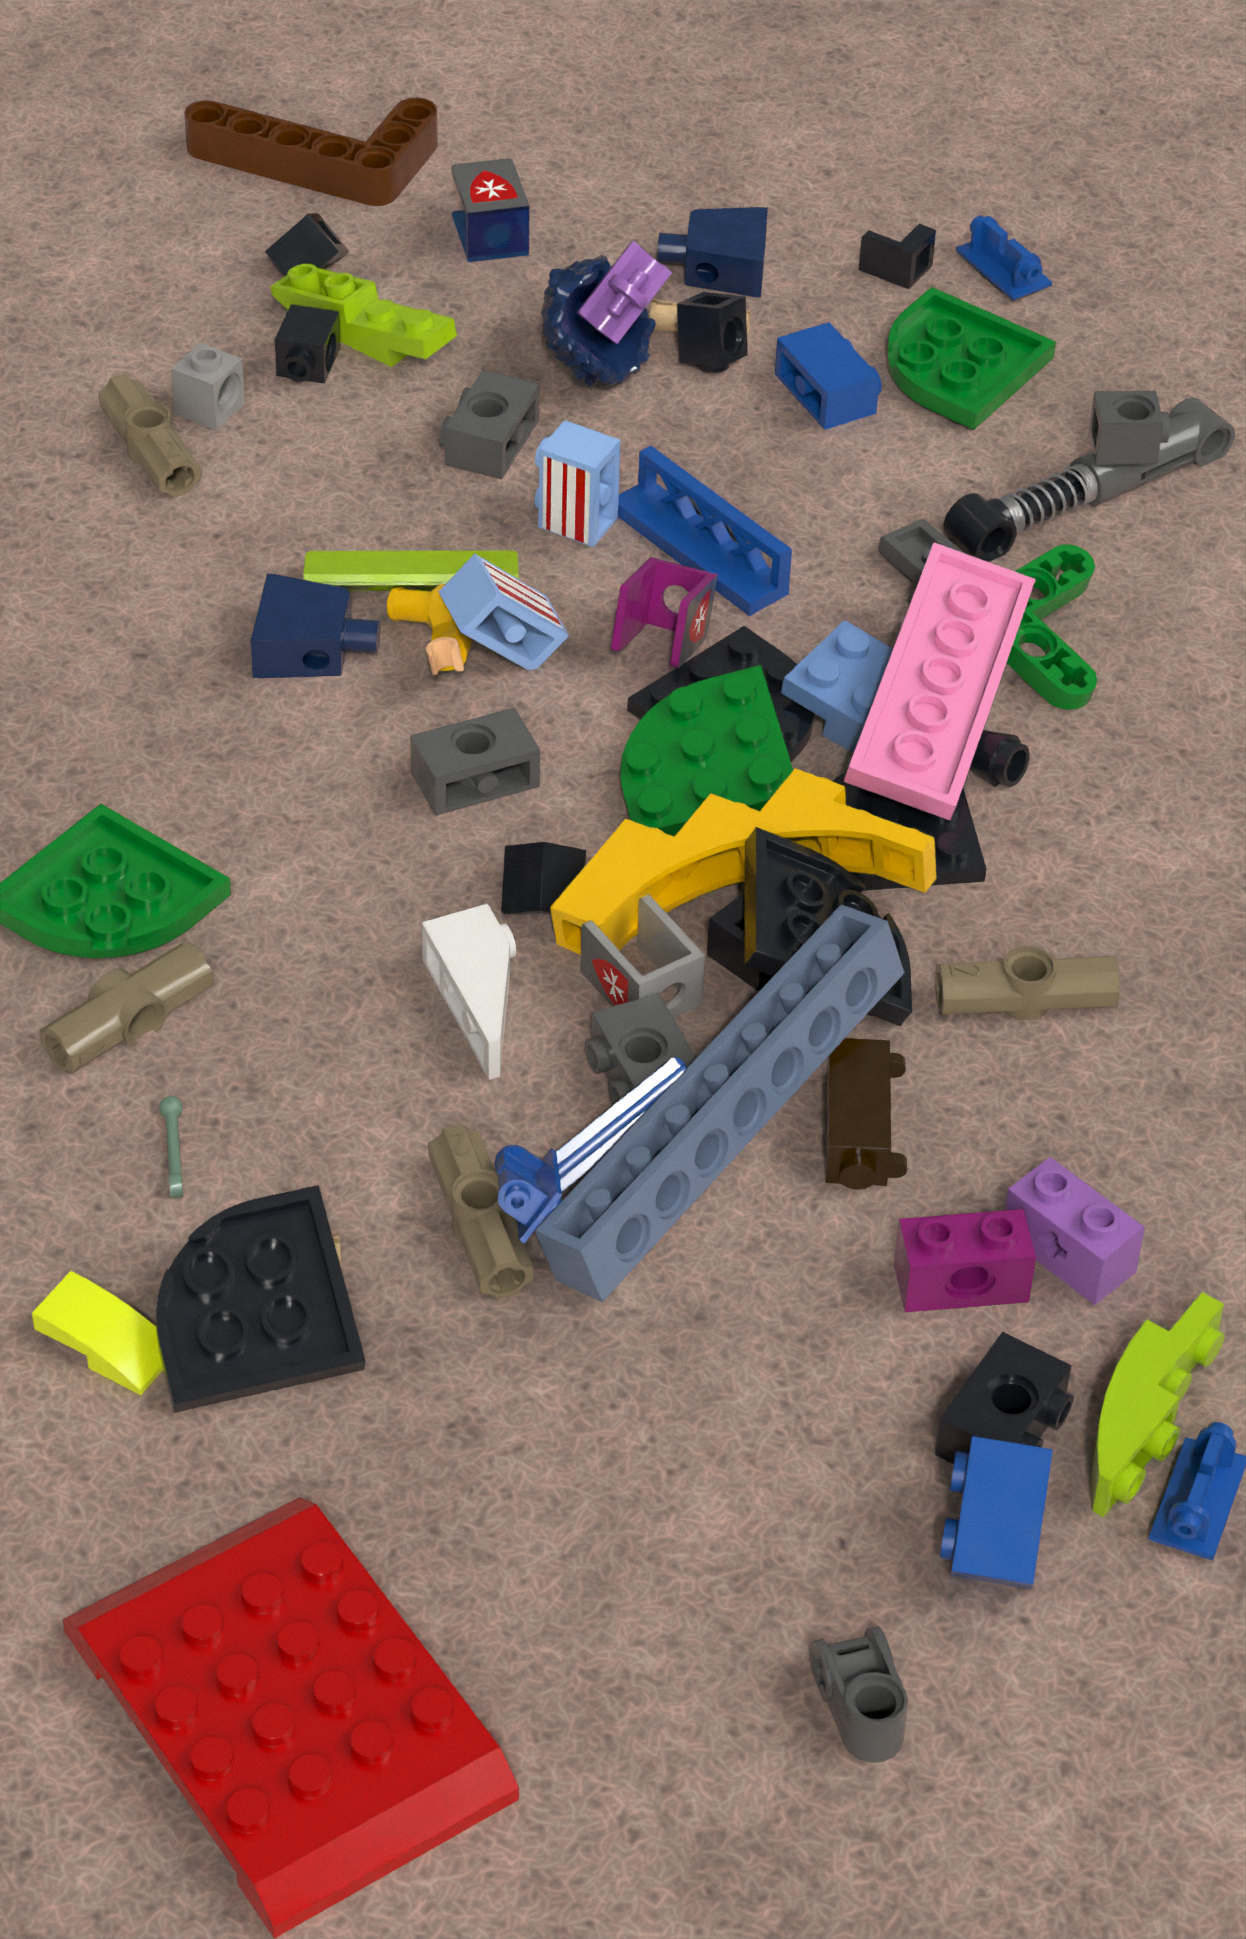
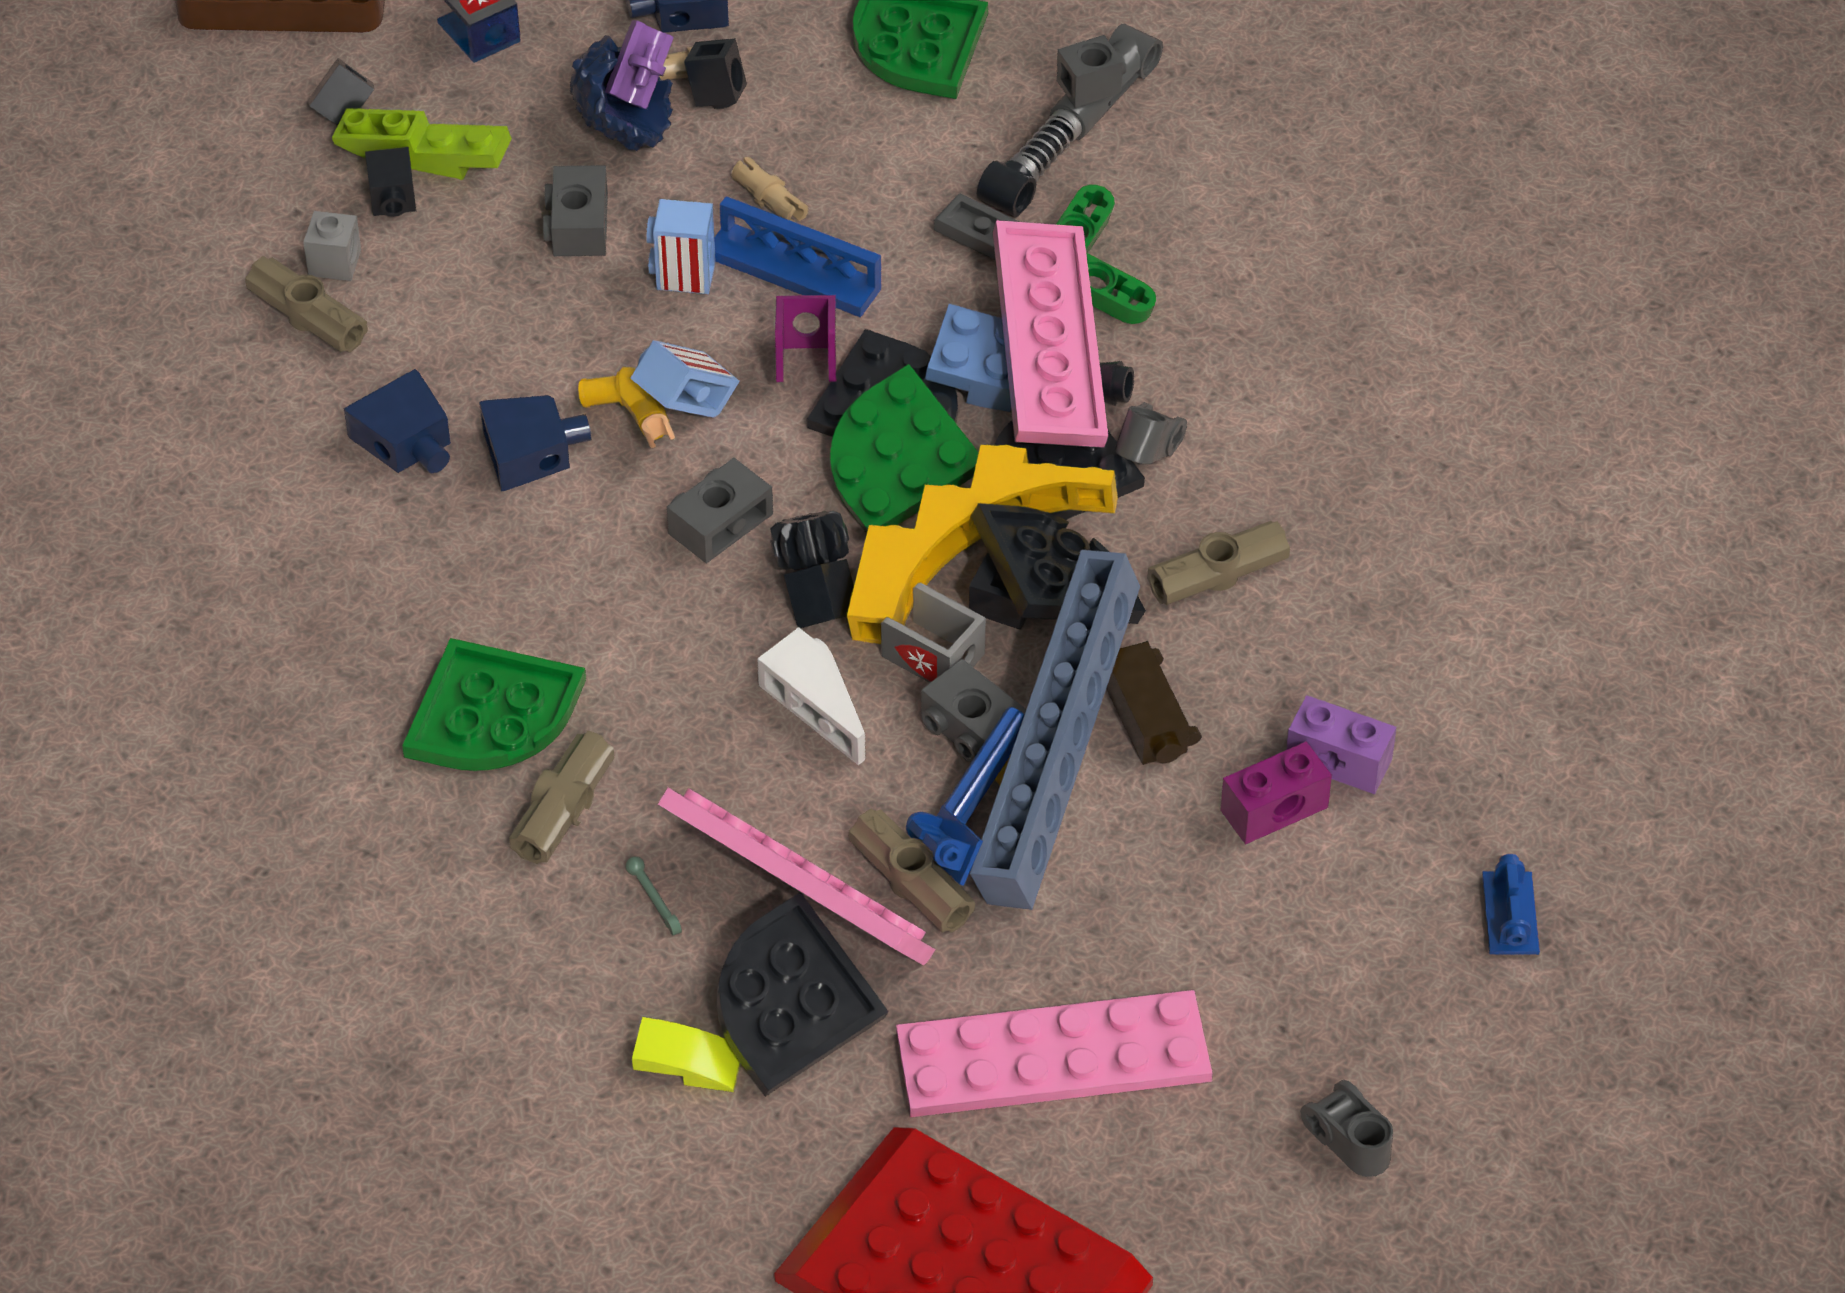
camera: 20 degrees left, 5 degrees up
(177, 577) = (401, 424): none -> dark blue torso
(334, 1168) = (799, 873): none -> bright pink plate
(396, 568) = (578, 360): lime slope -> none
(542, 1477) = (1053, 1053): none -> bright pink plate
(554, 817) = (809, 540): none -> black gear
(713, 461) = (768, 190): none -> tan pin
(827, 375) = (823, 86): blue brick -> none
(999, 1512) = (1389, 970): blue brick -> none
(1007, 1399) = (1354, 894): black brick -> none
(1011, 822) = (1149, 435): none -> dark grey piece
(1145, 1399) = (1446, 857): lime slope -> none

